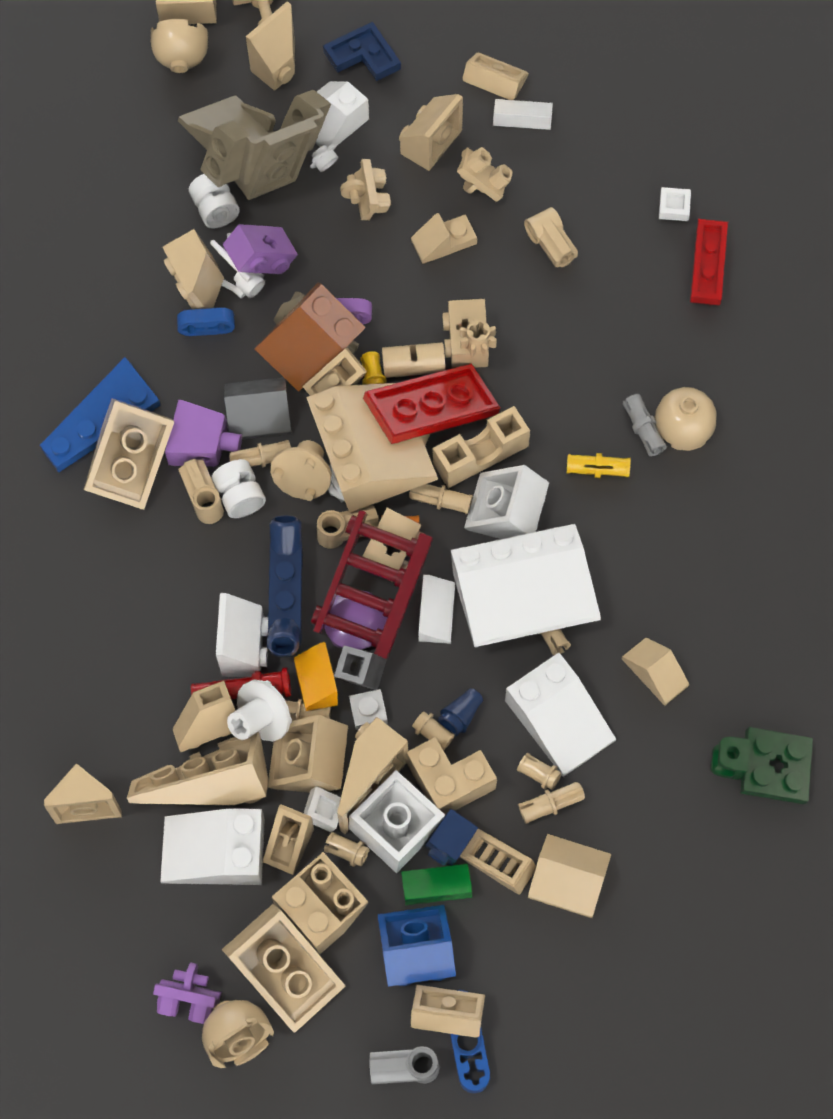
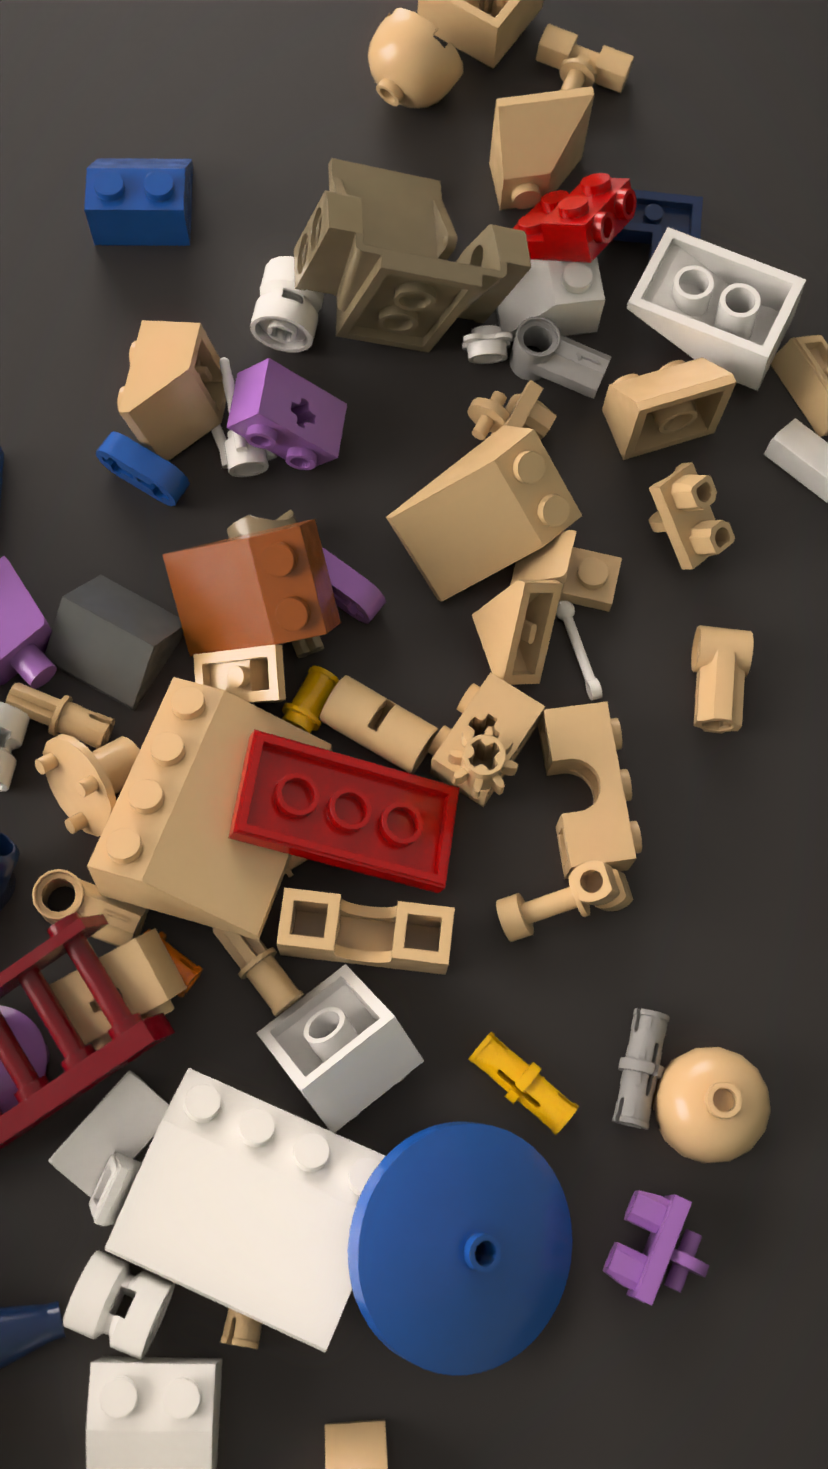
camera: 30 degrees right, 5 degrees up
(95, 198) = (139, 201): none -> blue slope
(327, 70) = (579, 223): none -> red plate
(363, 142) = (560, 360): none -> light grey piece
(389, 231) = (485, 512): none -> tan slope
(420, 67) = (717, 304): none -> white slope
(444, 274) = (518, 629): none -> tan slope
(456, 626) = (113, 1189): none -> white slope
(496, 280) = (565, 612): none -> white hinge
(496, 667) = (100, 1295): none -> white wheel
(515, 306) = (585, 744): none -> tan arch
(569, 359) = (589, 884): none -> tan bar
(624, 539) = (460, 1247): none -> blue dish
(708, 501) = (645, 1271): none -> medium lavender hips

